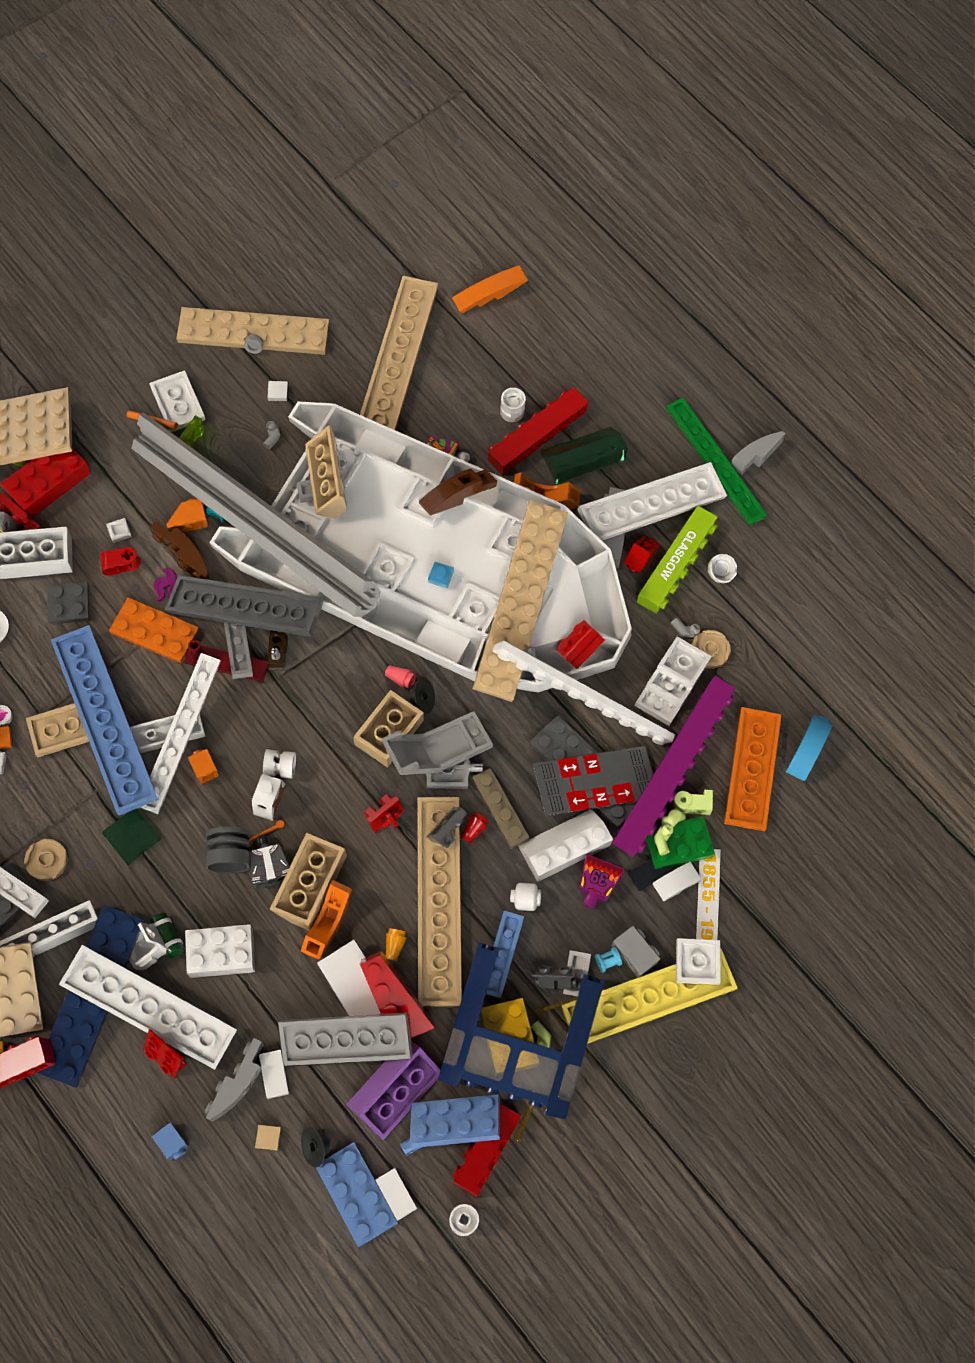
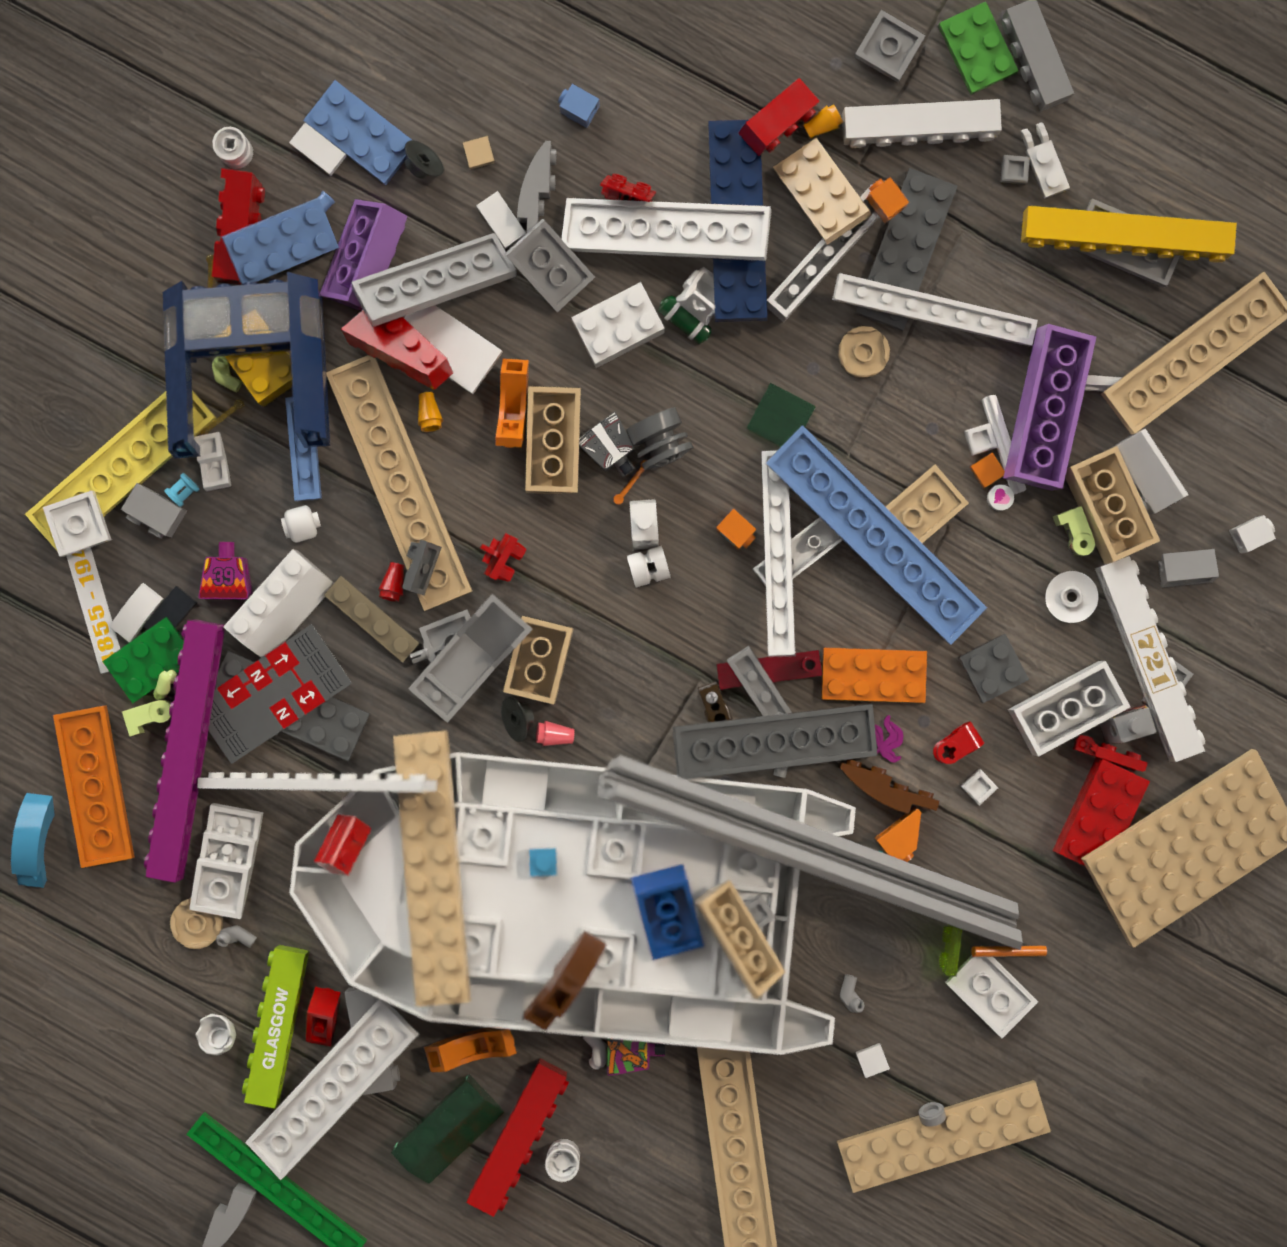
camera: 160 degrees right, 20 degrees up
(251, 1017) = (549, 265): none -> light grey plate
(367, 512) = (668, 911): none -> blue slope
(564, 975) = (242, 444): dark grey hinge -> none
(661, 837) = (169, 653): yellowish green arm -> none

